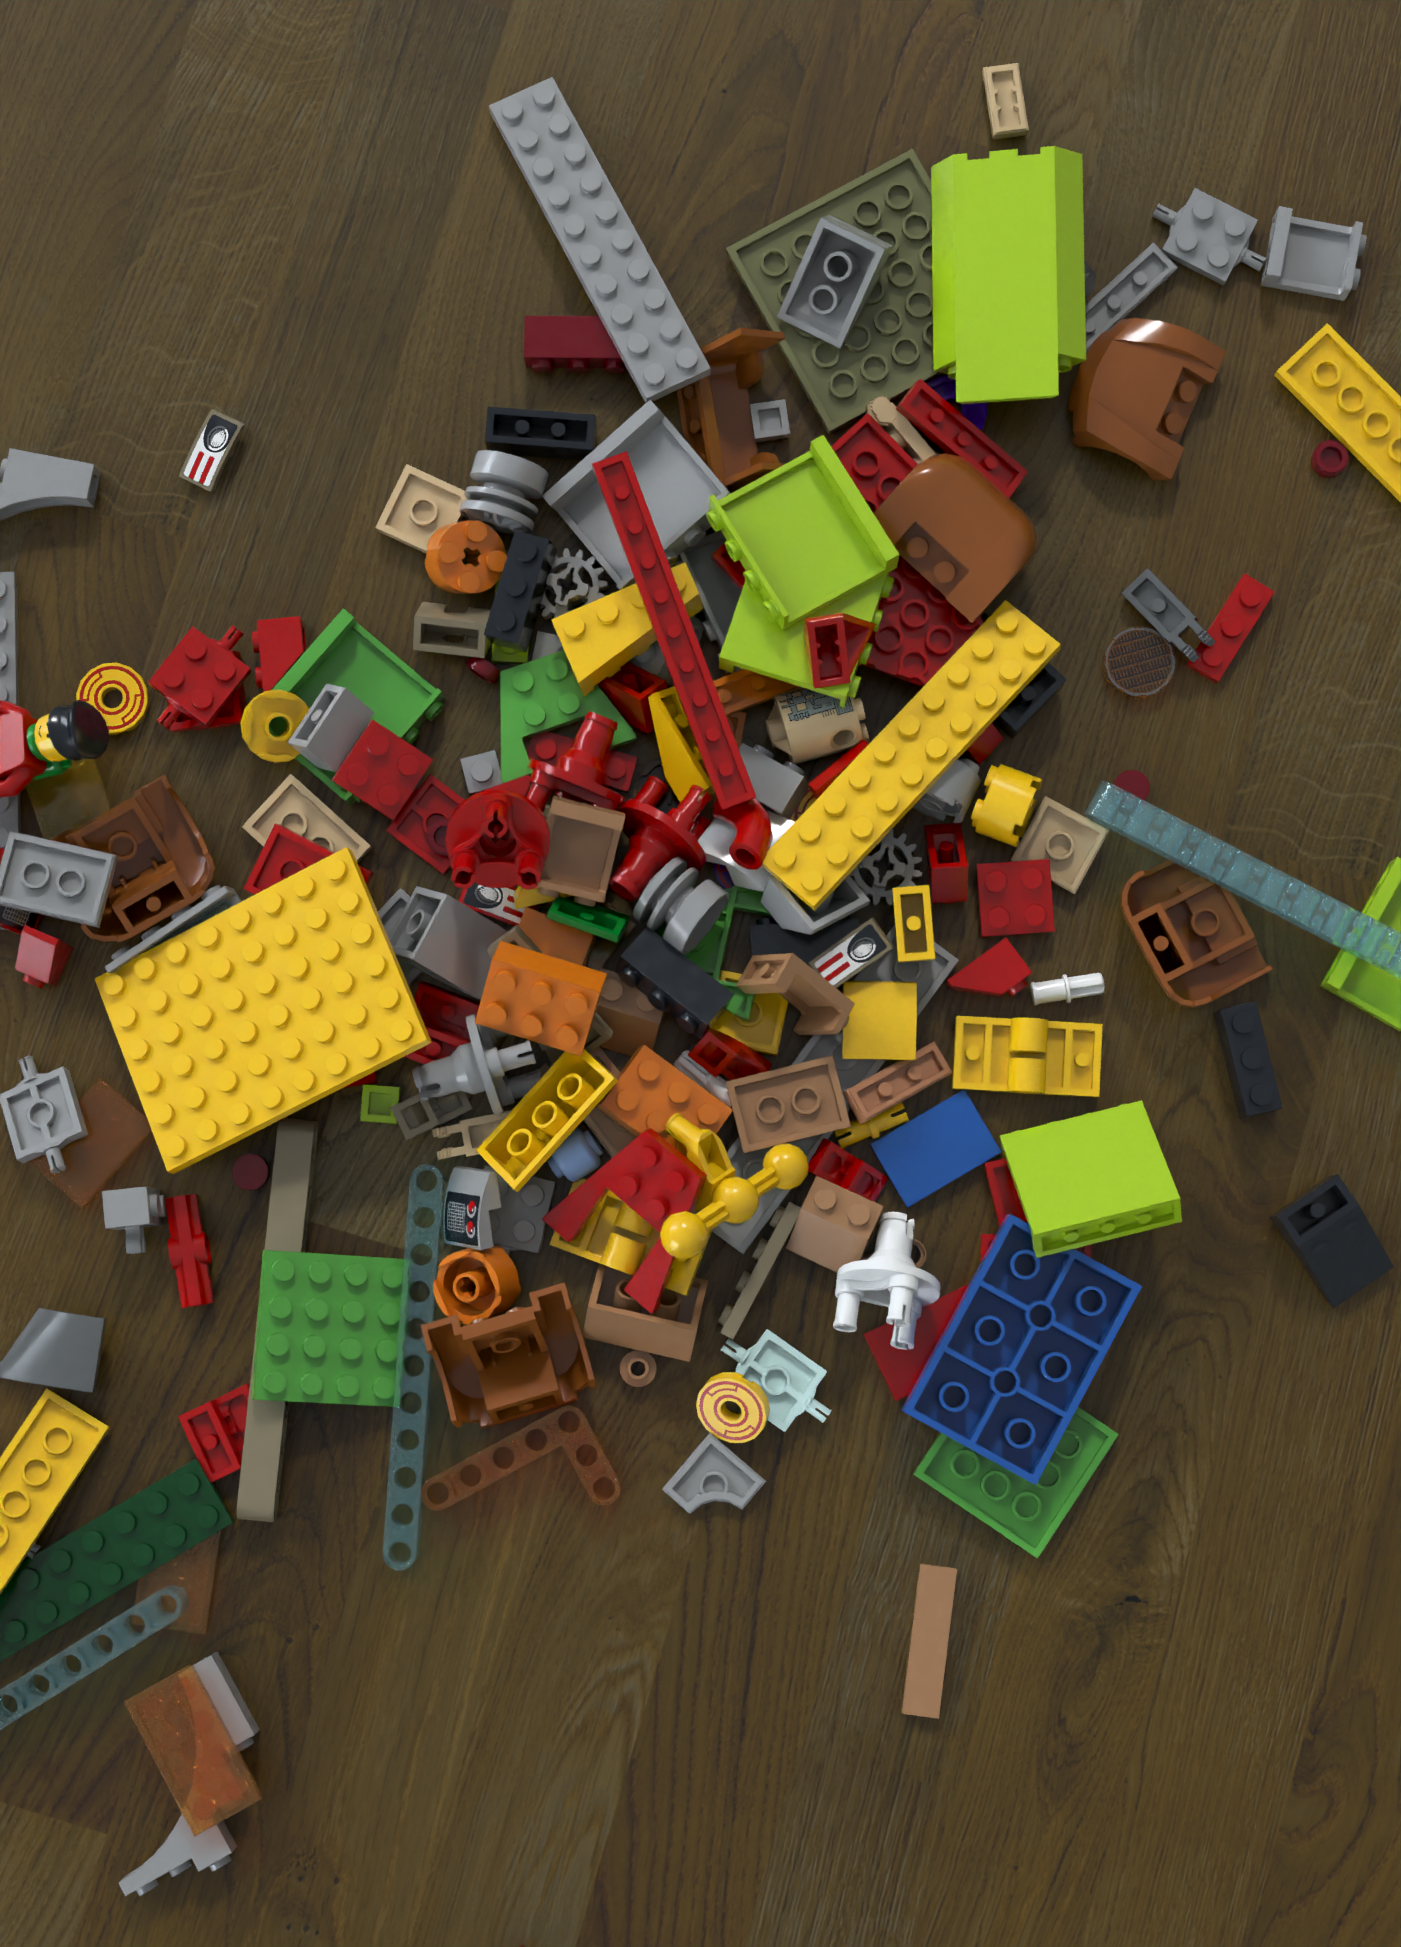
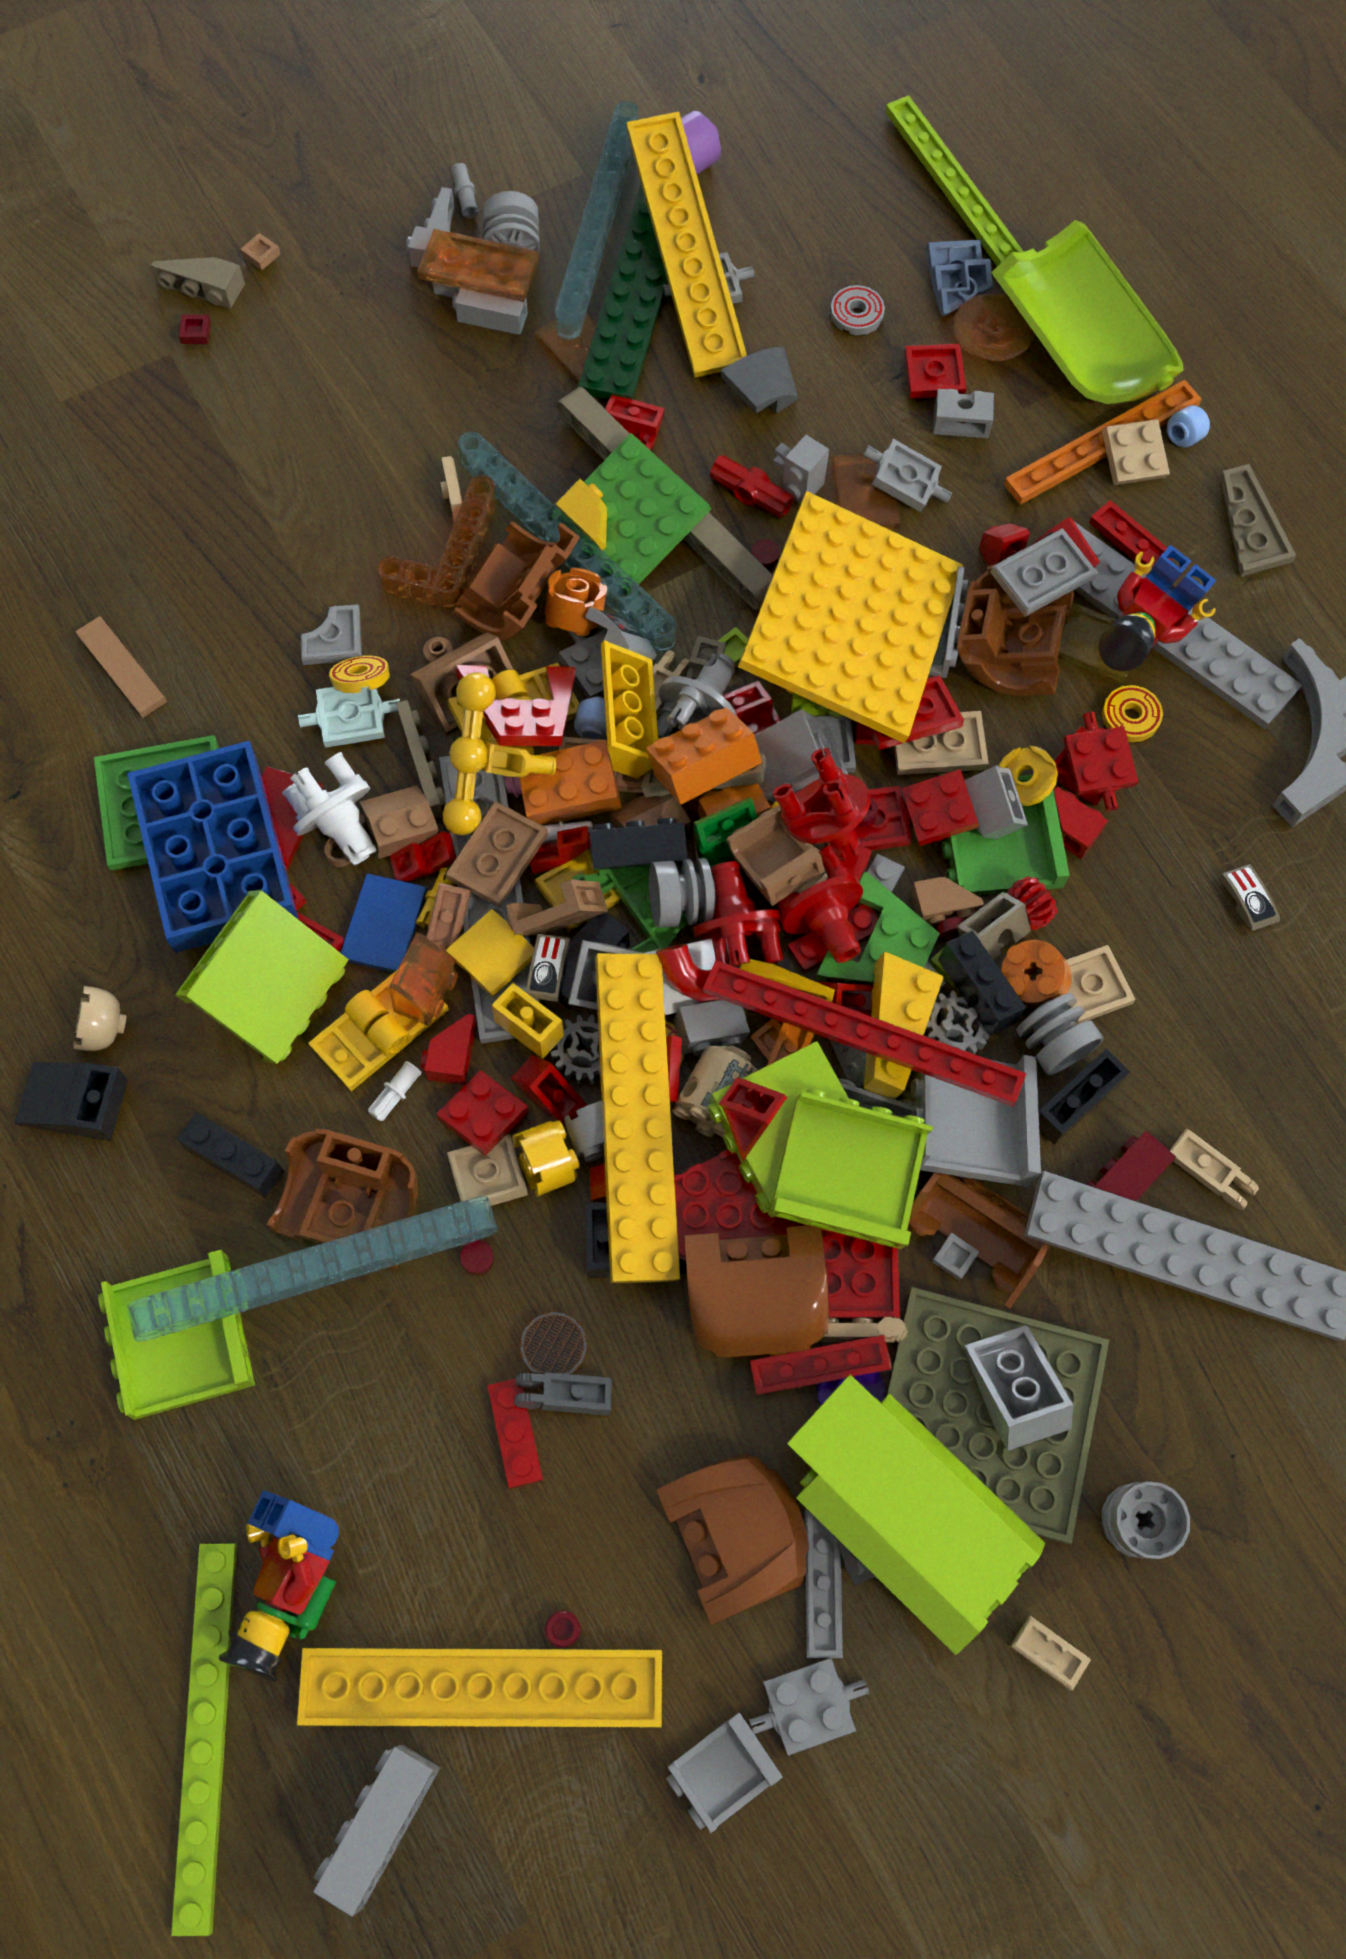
camera: 130 degrees right, 15 degrees down
(98, 1881) = (464, 190): none -> light grey pin
(107, 1776) = (511, 220): none -> light grey wheel
(377, 1359) = (586, 510): none -> yellow slope
(396, 619) = (1037, 901): none -> red gear
(461, 1528) = (450, 487): none -> tan plate
(466, 699) = (943, 899): none -> medium nougat slope
(501, 290) = (1212, 1168): none -> tan hinge
(852, 89) = (1164, 1516): none -> light grey wheel
(964, 1042) = (422, 981): none -> clear orange slope
(1252, 1289) = (98, 1020): none -> tan cylinder

